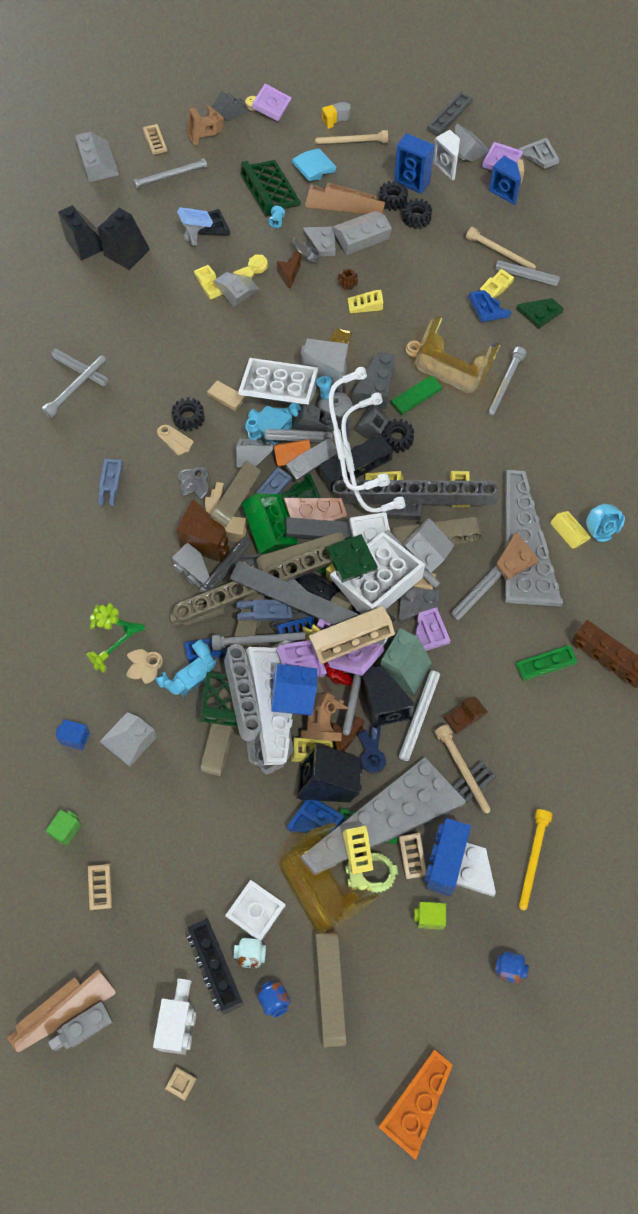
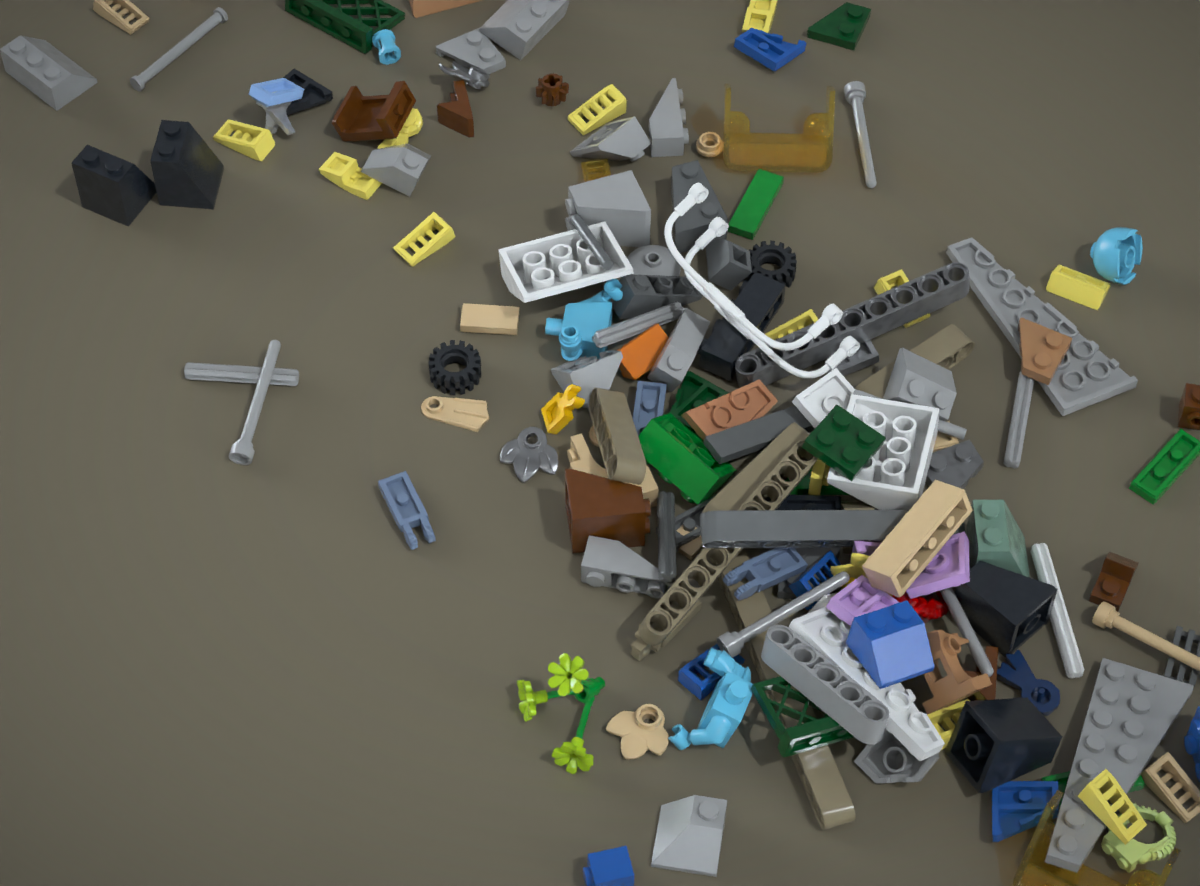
camera: 30 degrees left, 10 degrees down
(171, 239) = (240, 141): none -> light yellow slope
(224, 340) = (431, 223): none -> light yellow slope
(224, 464) = (559, 409): none -> yellow plate
(240, 252) = (373, 116): none -> reddish brown panel
(298, 377) = (591, 242): none -> dark grey bar
(325, 385) = (627, 241): medium azure bush -> none
(361, 324) = (615, 142): none -> light grey slope
(395, 327) = (667, 122): none -> light grey slope
(431, 629) = (989, 484): lavender wing -> none

